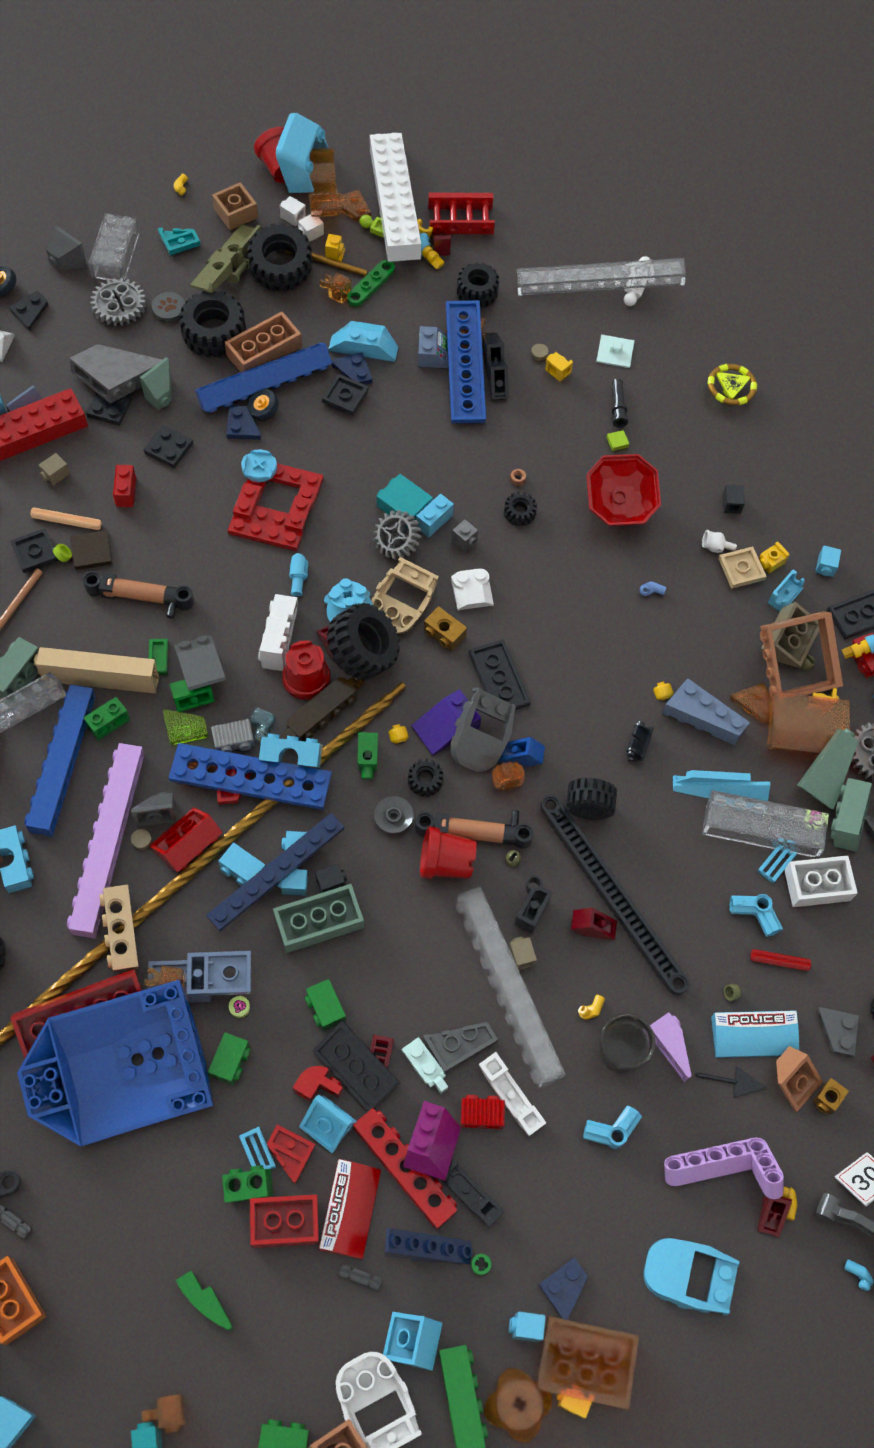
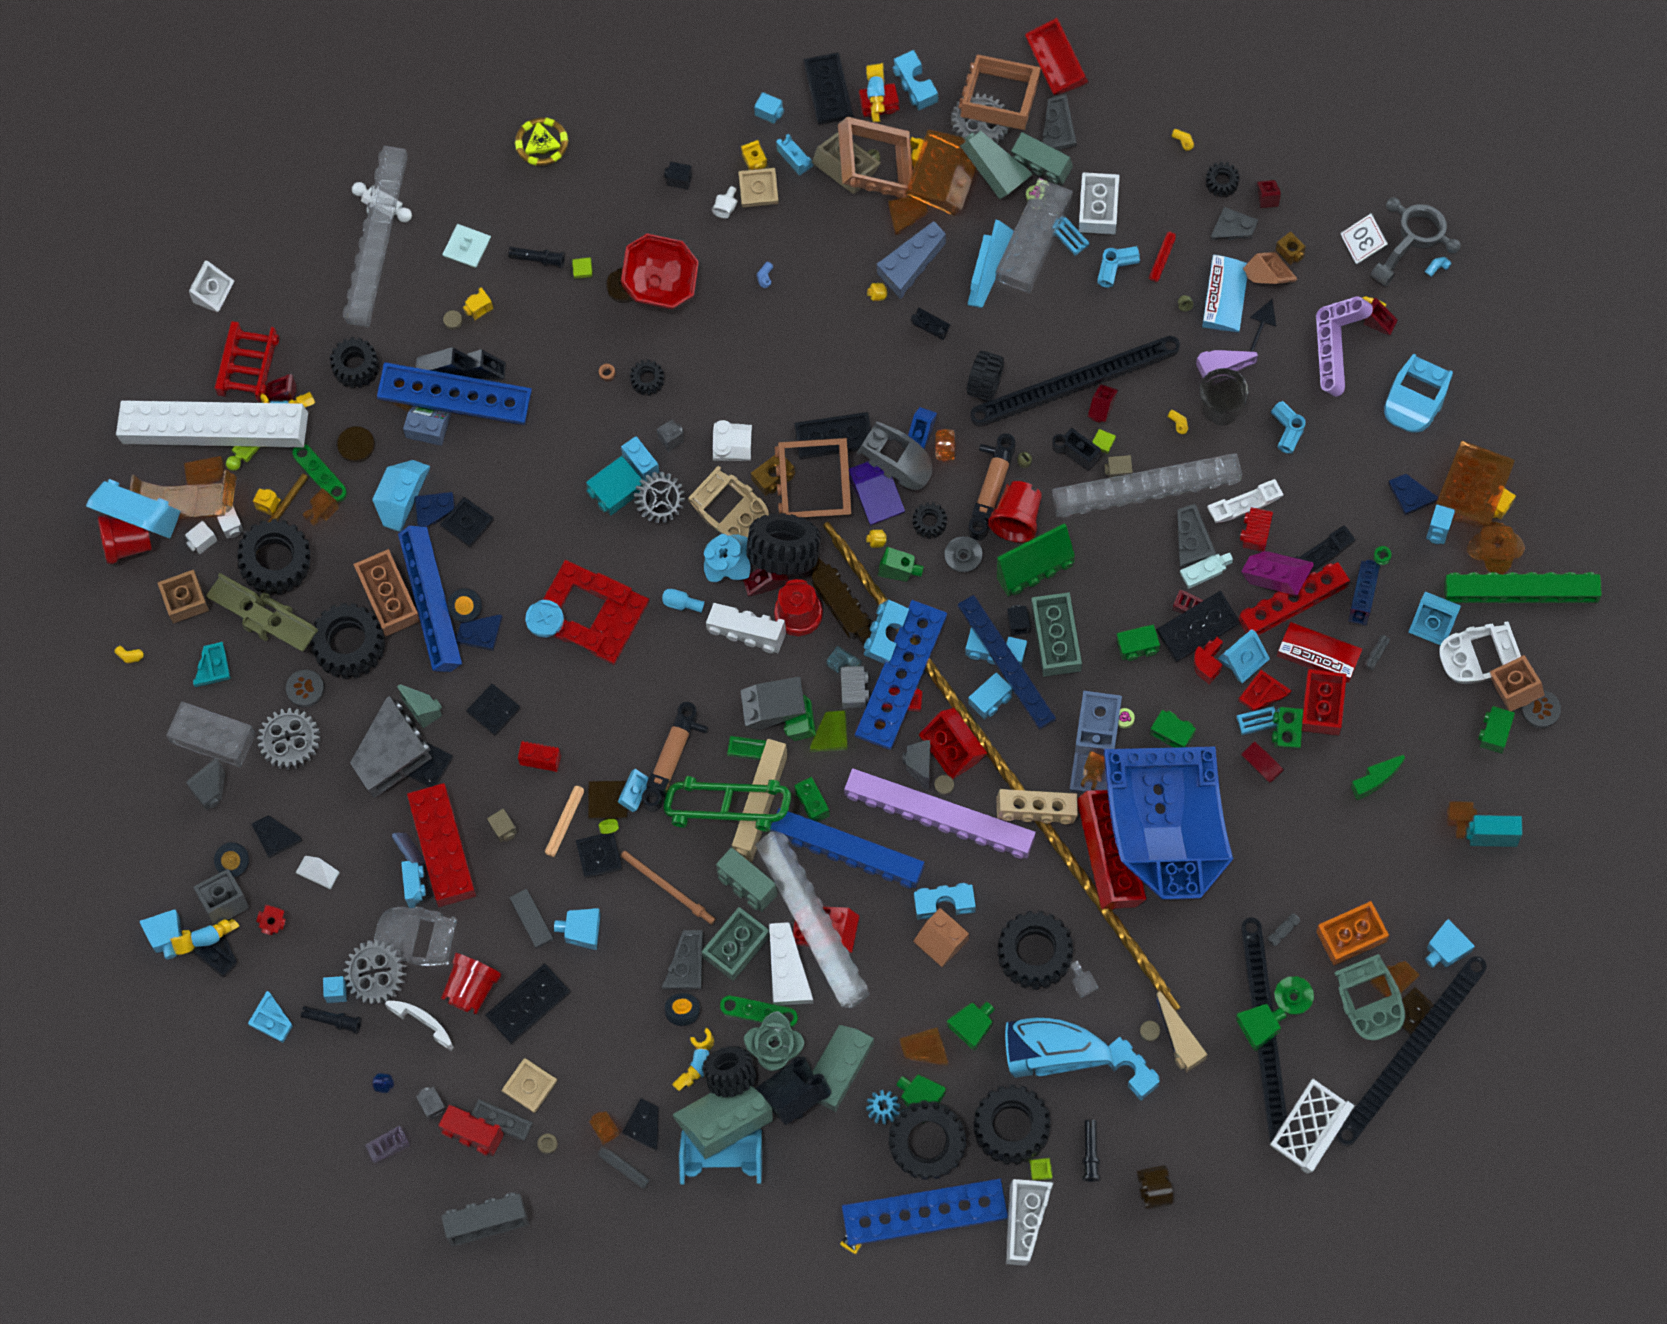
camera: 70 degrees left, 5 degrees up
(96, 665) = (763, 821): none -> green bar
(99, 564) = (633, 790): none -> medium azure plate
(203, 1165) = (1262, 762): none -> dark red slope
(394, 882) = (1035, 560): none -> green slope
(403, 303) = (355, 444): none -> dark brown tile
(451, 685) = (781, 472): none -> nougat window
(523, 176) = (210, 287): none -> white slope
(551, 933) = (1104, 440): none -> lime tile

